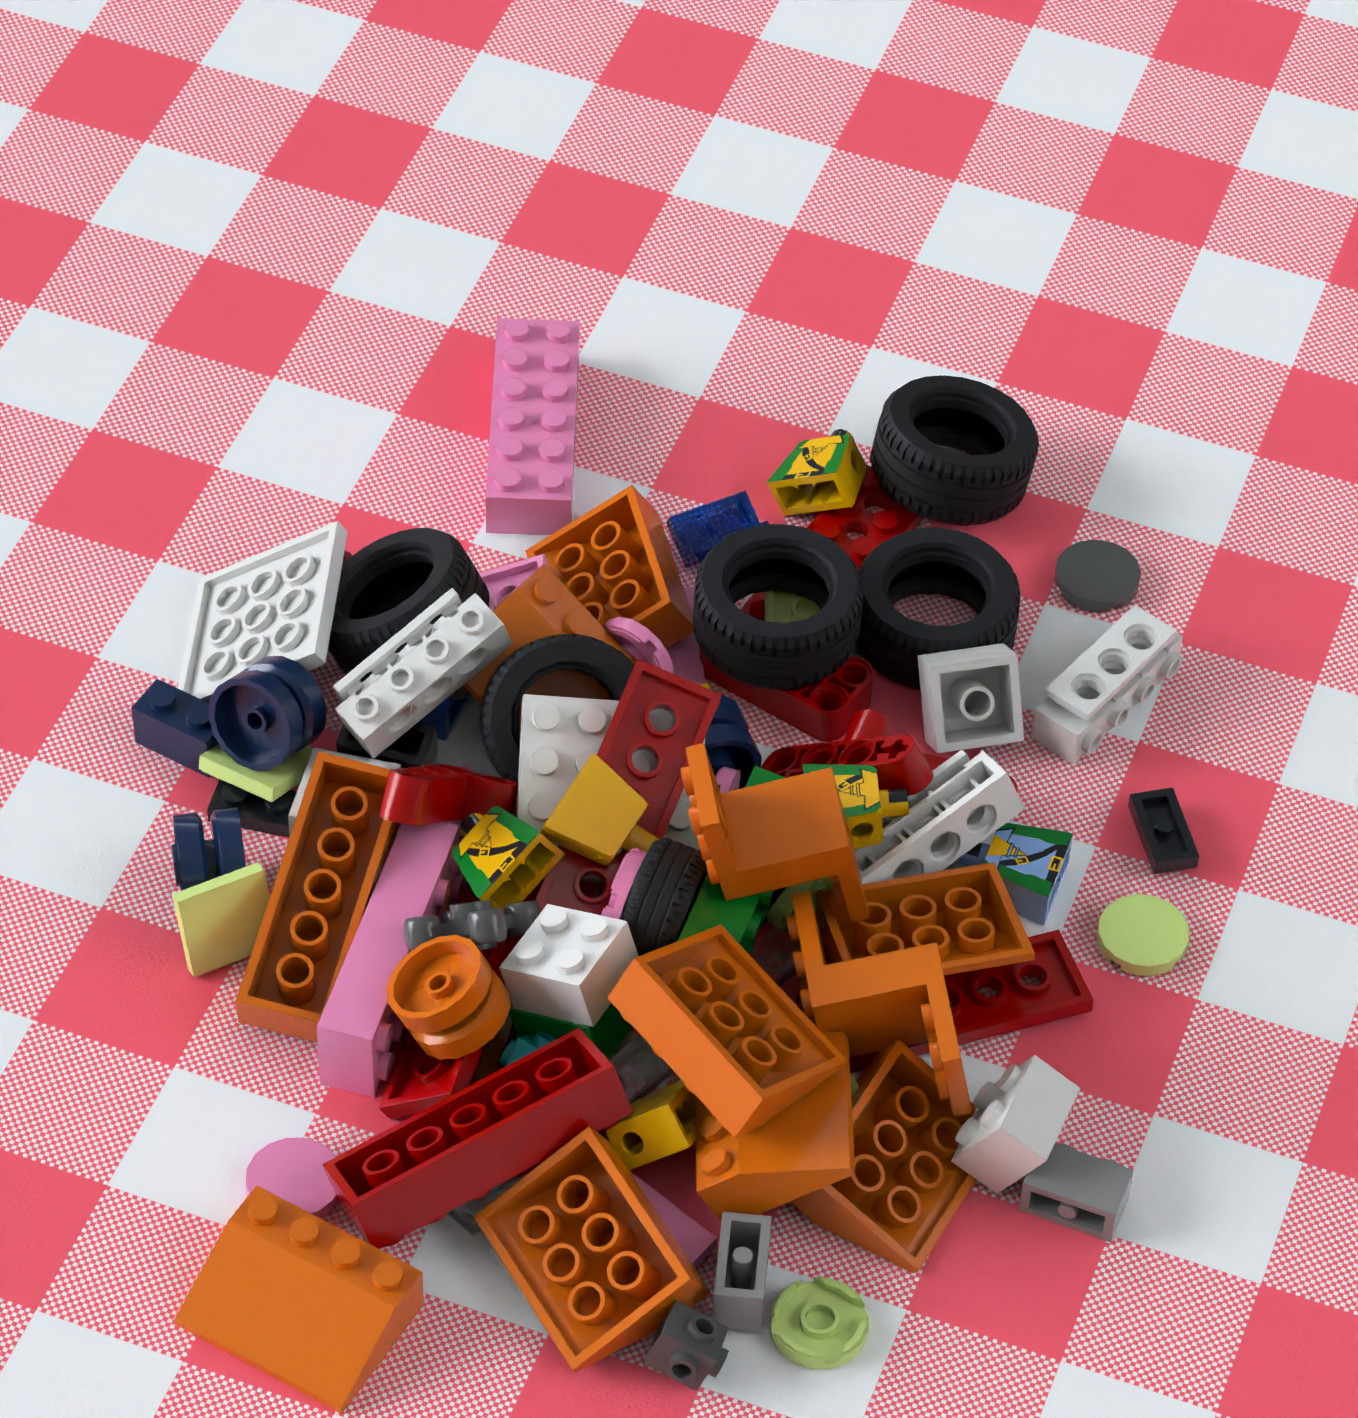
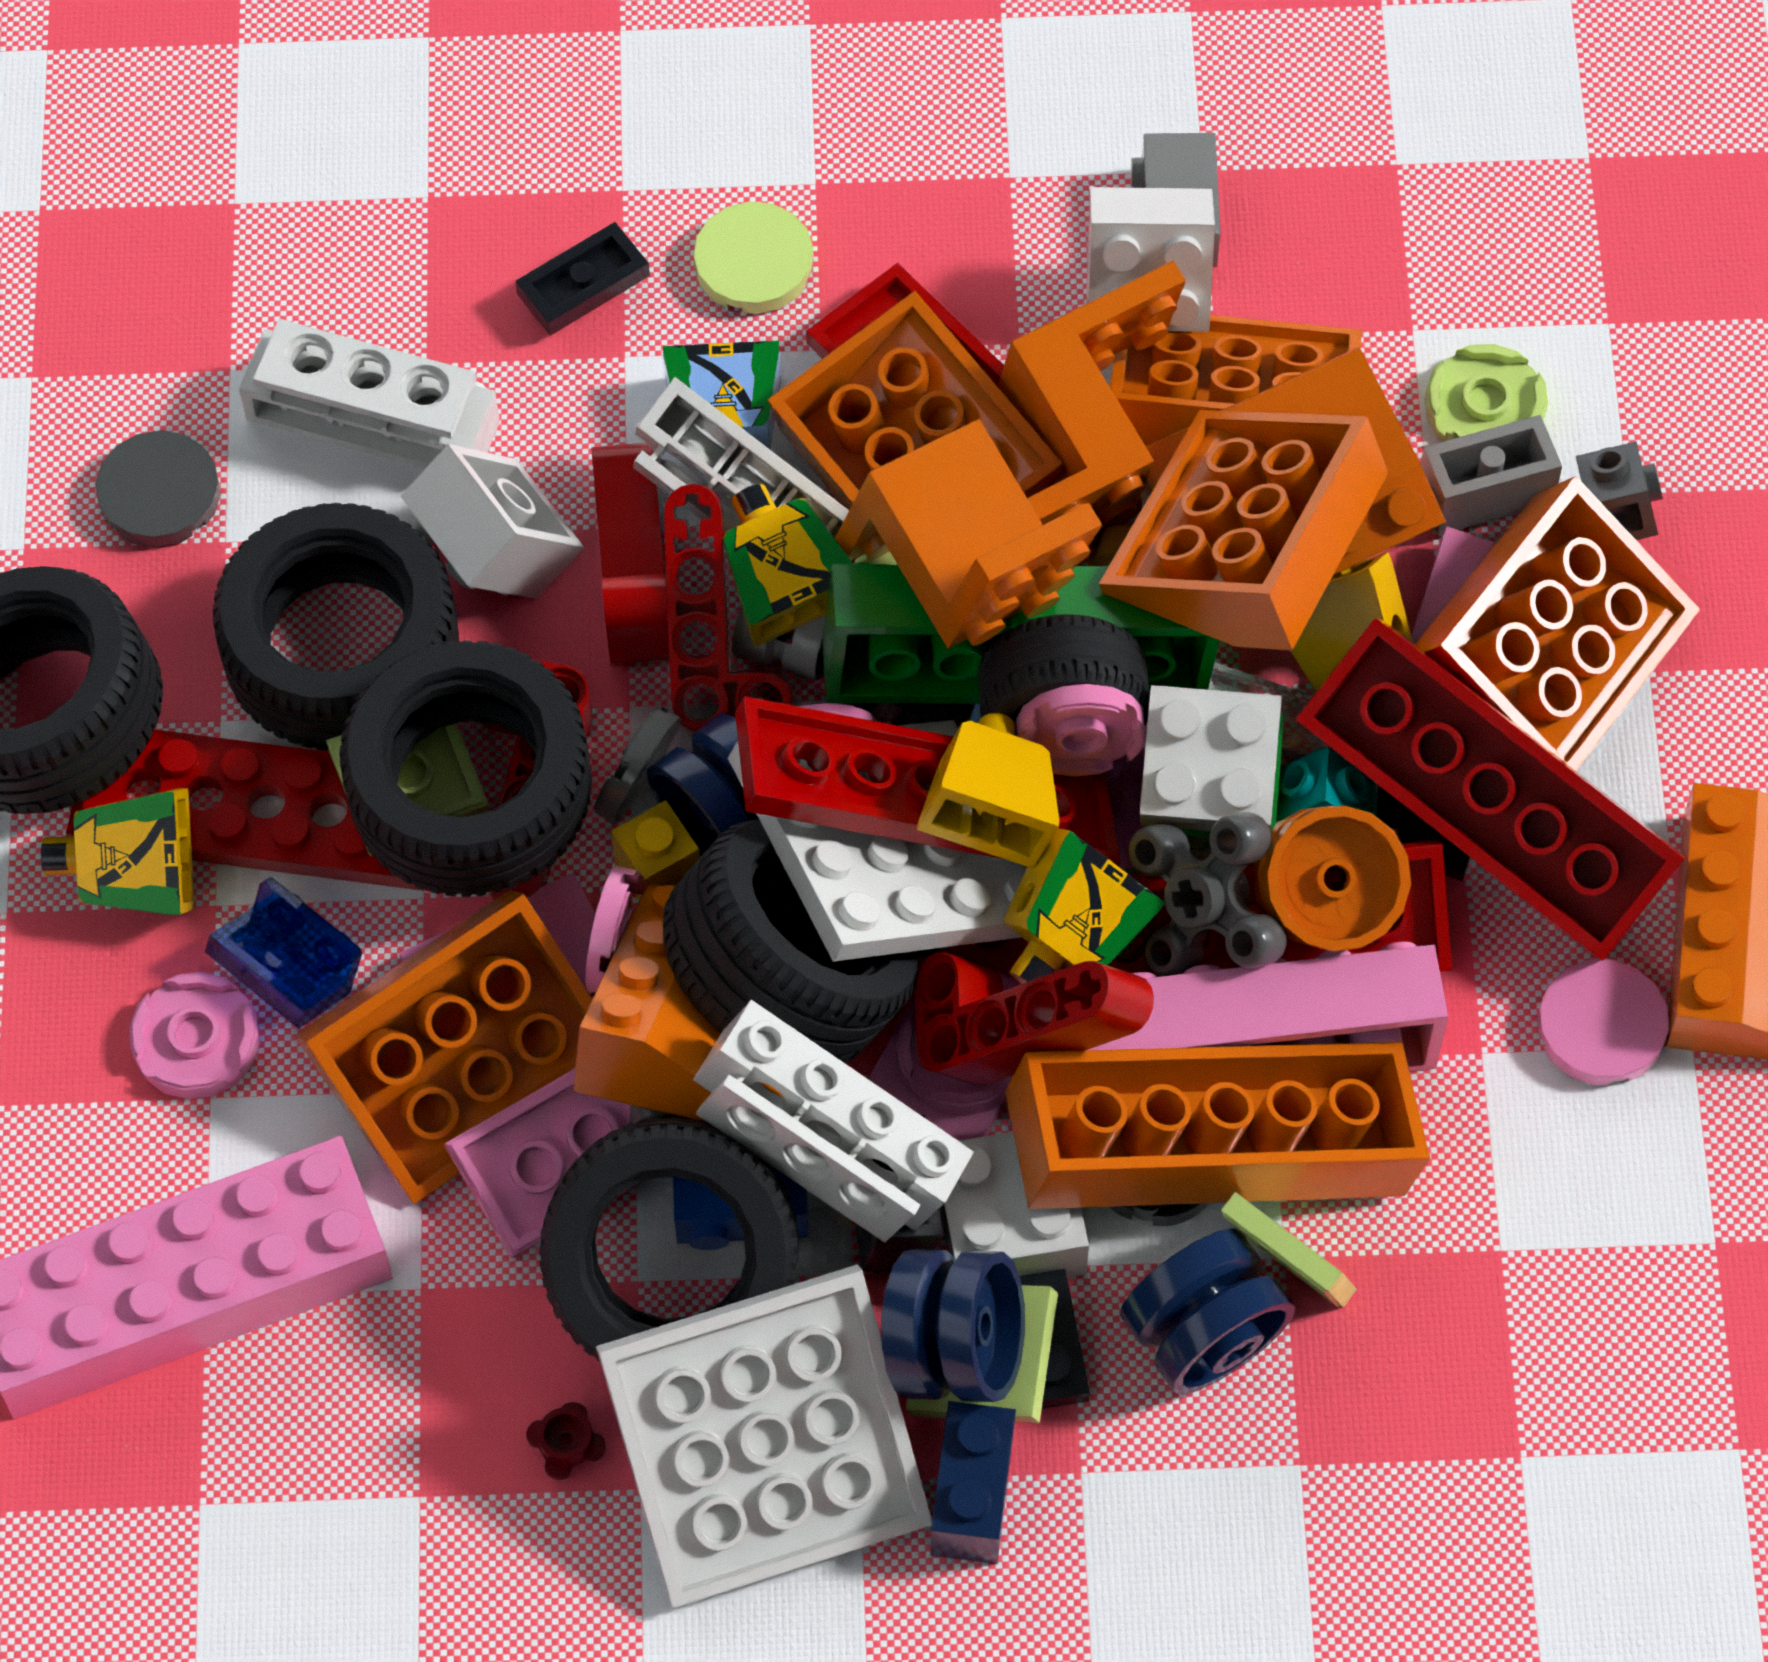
camera: 110 degrees left, 15 degrees up
(691, 482) = (195, 1035): none -> bright pink tile
(757, 715) = (643, 750): none -> dark grey tile

